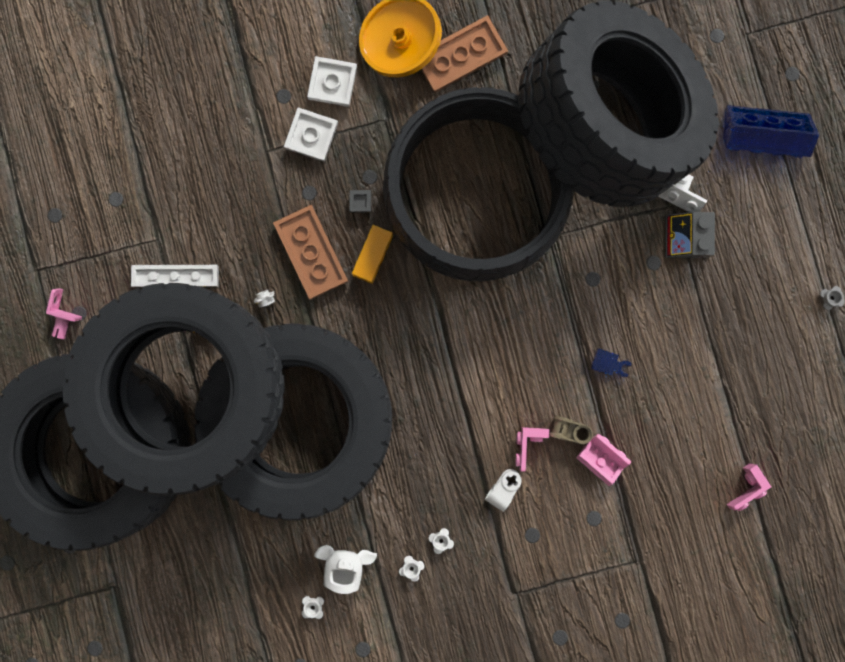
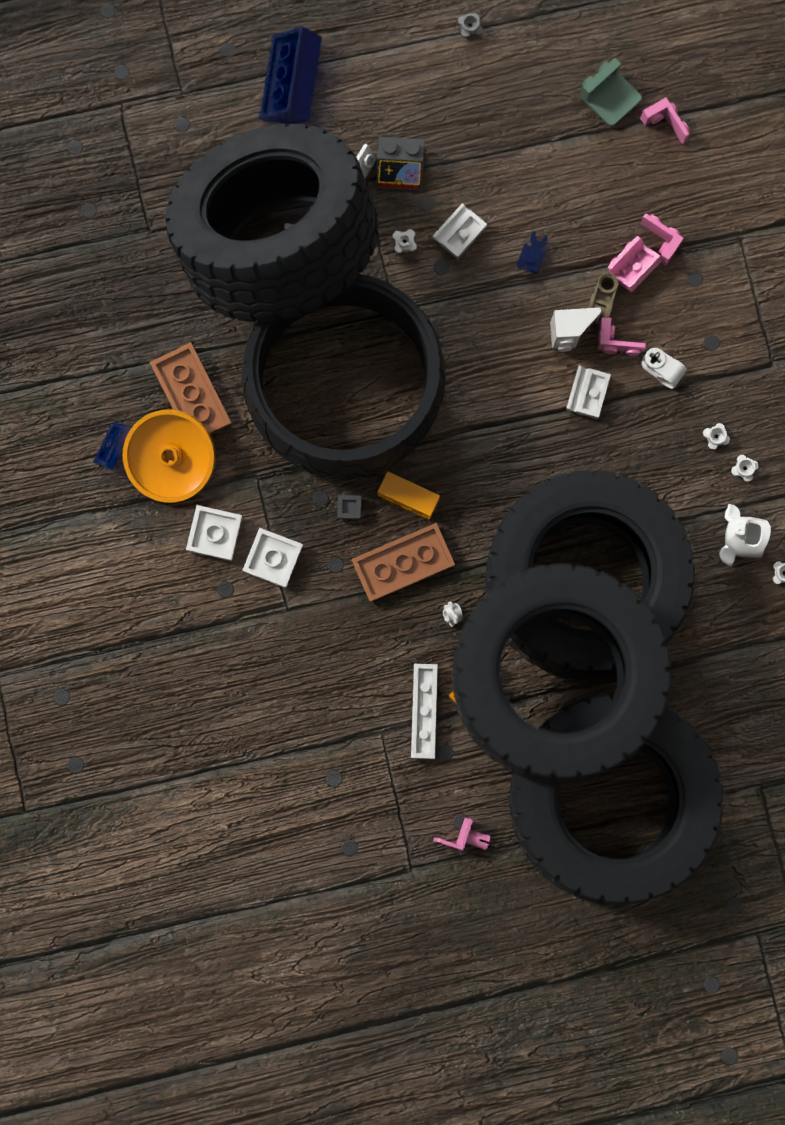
camera: 90 degrees left, 5 degrees down
(477, 418) = (588, 392): none -> white plate
(538, 401) = (571, 326): none -> white slope
(619, 238) = (404, 247): none -> white plate
(627, 293) = (459, 231): none -> white plate
(634, 494) = (669, 234): none -> bright pink bracket
(772, 432) = (609, 93): none -> sand green bracket

